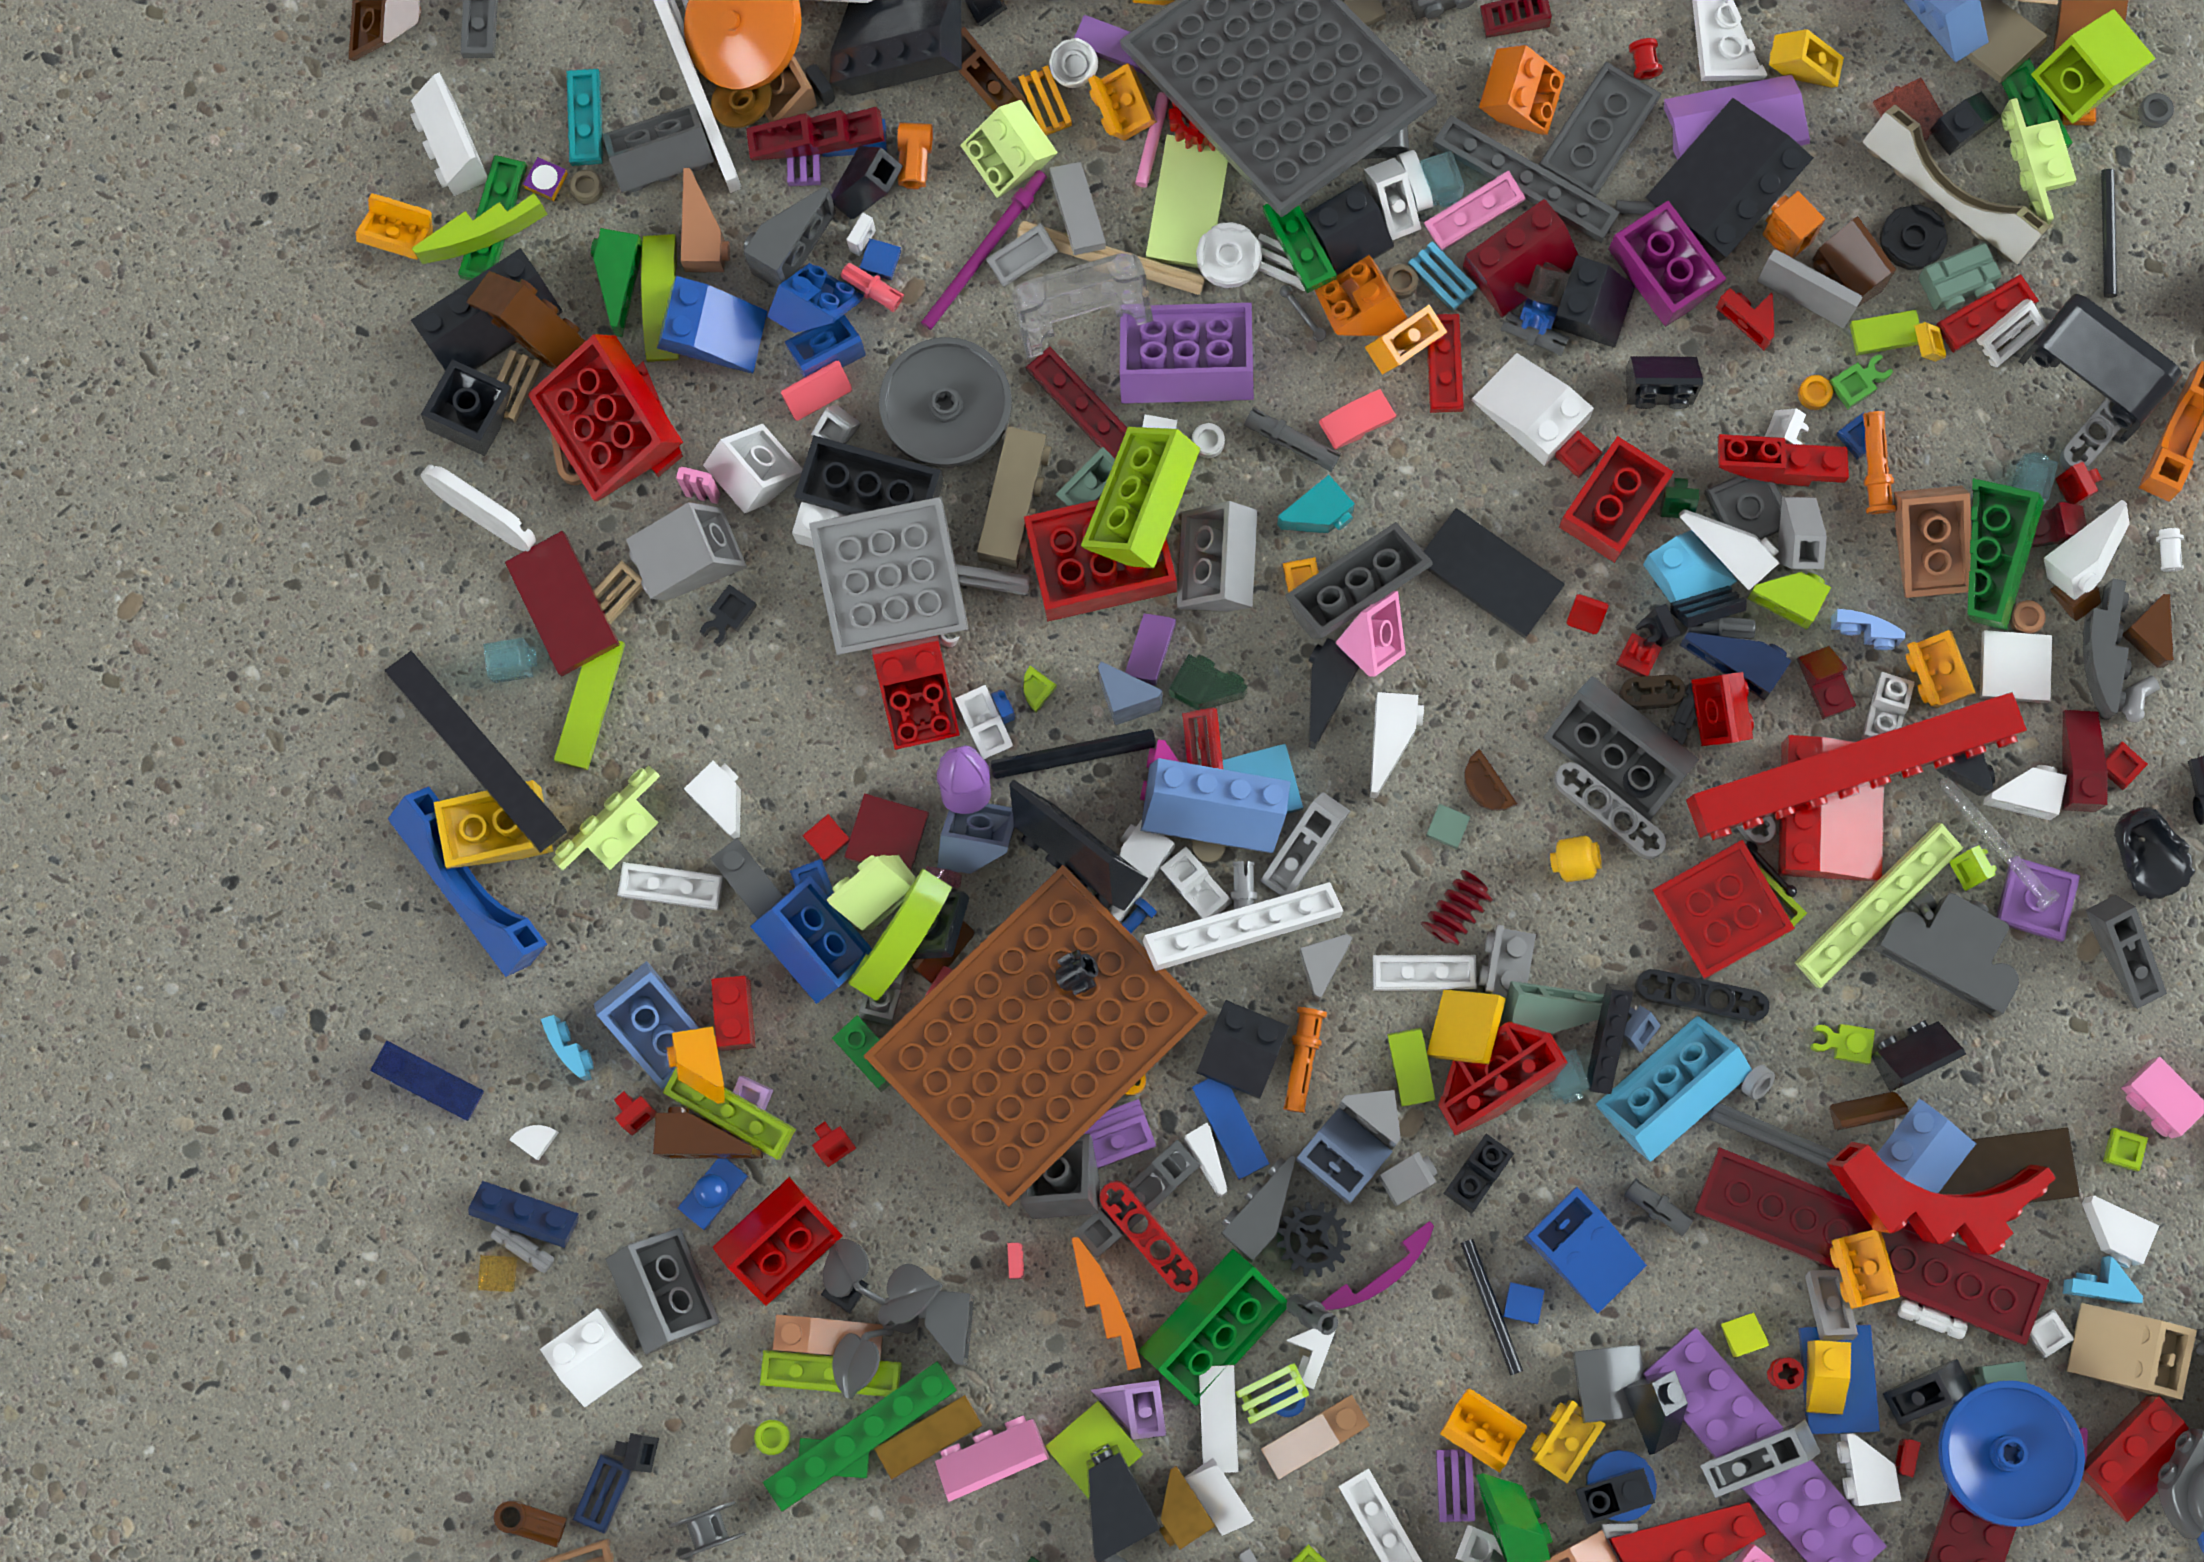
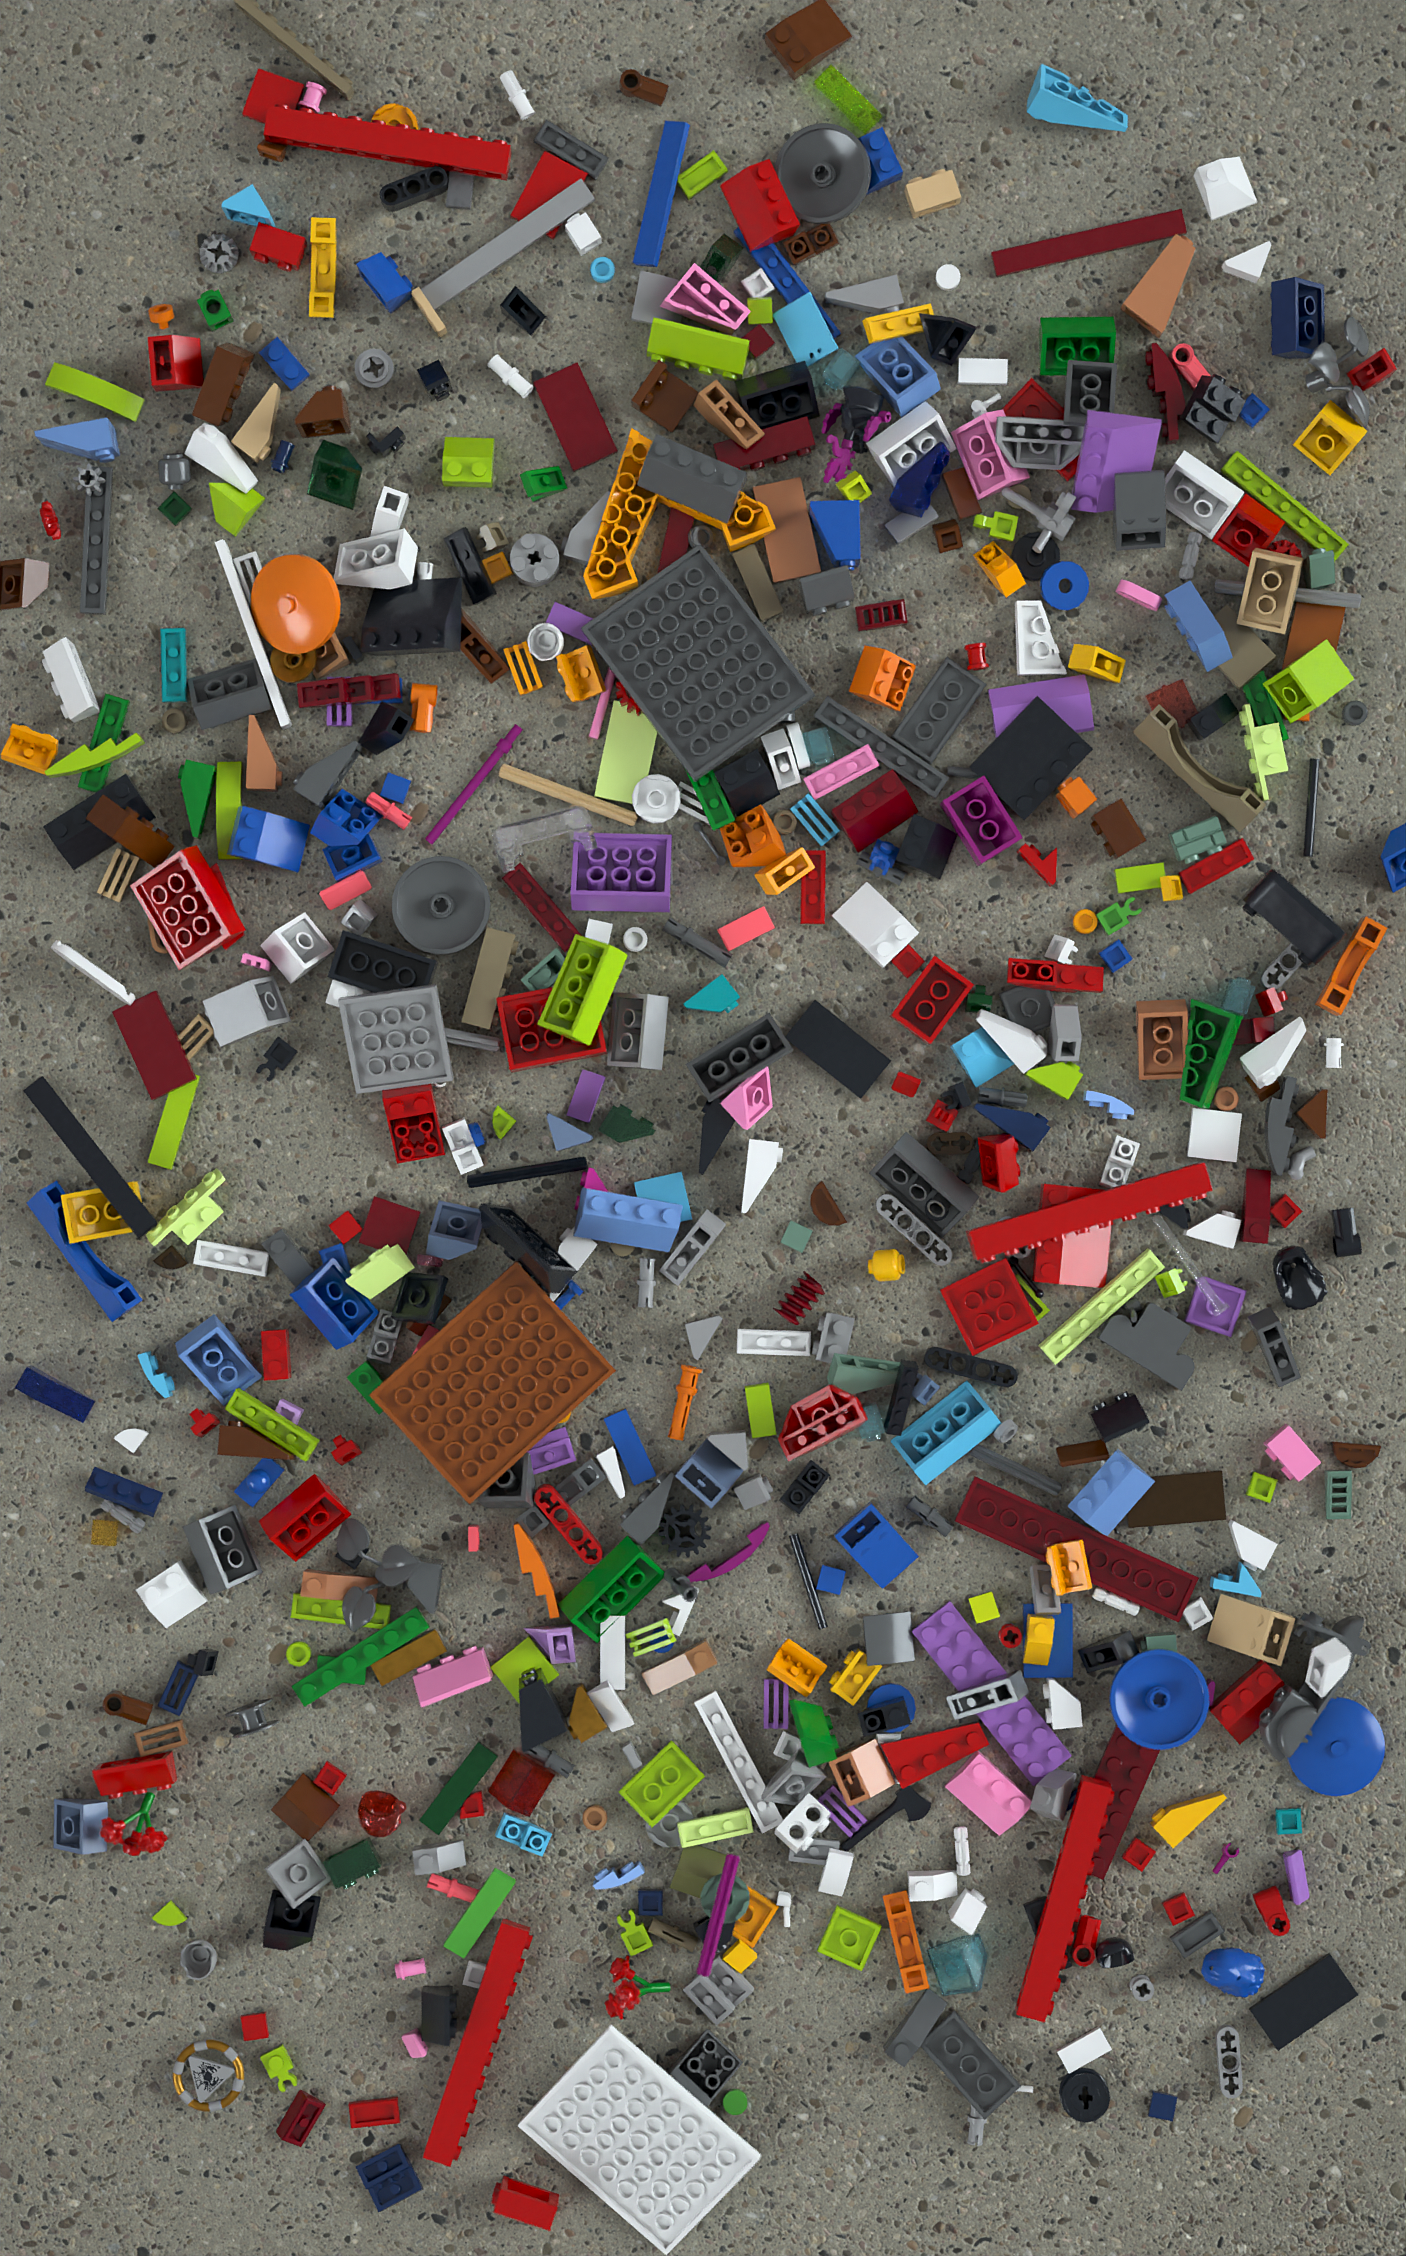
camera: 10 degrees left, 10 degrees up
(467, 407) = (85, 894): black slope -> none
(509, 660) = (115, 1086): clear light blue brick -> none
(545, 179) = (143, 713): tile -> none
(587, 891) = (171, 1259): none -> dark brown tile
(697, 1062) = (250, 1391): light orange slope -> none
(718, 796) = (268, 1195): white slope -> none
(860, 235) = (381, 770): white tile -> none
(901, 936) = (400, 1306): lime slope -> none
(964, 780) = (447, 1192): medium lavender helmet -> none
(1008, 147) = (494, 707): yellowish green slope -> none
(1022, 255) = (502, 791): light grey tile -> none
(1076, 972) = (523, 1342): black gear -> none
(1077, 208) = (544, 756): light grey tile -> none
(1195, 884) = (612, 1272): white slope -> none
(1213, 735) = (625, 1169): red tile -> none
(1242, 926) = (644, 1308): white plate -> none
(1242, 1049) = (640, 1395): black slope -> none
(1299, 572) = (698, 1044): light orange tile -> none
(1466, 1026) = (800, 1384): yellow tile -> none
(1546, 284) = (890, 835): clear smoke panel -> none
(1657, 1408) = (918, 1657): black slope -> none
(1663, 381) = (972, 910): black slope -> none
(1708, 606) = (979, 1085): black tile -> none
(1809, 288) = (1084, 846): light grey tile -> none
(1826, 681) = (1076, 1140): dark red slope -> none
(1849, 1042) = (1073, 1404): lime plate -> none
(1878, 479) = (1125, 991): orange pin -> none
(1892, 1201) = (1121, 1533): red arch -> none
(1907, 1457) = (1089, 1696): red tile -> none
(1913, 237) = (1166, 804): black tile -> none
(1939, 670) = (1157, 1136): light orange bracket -> none
(2008, 328) = (1230, 880): white tile -> none

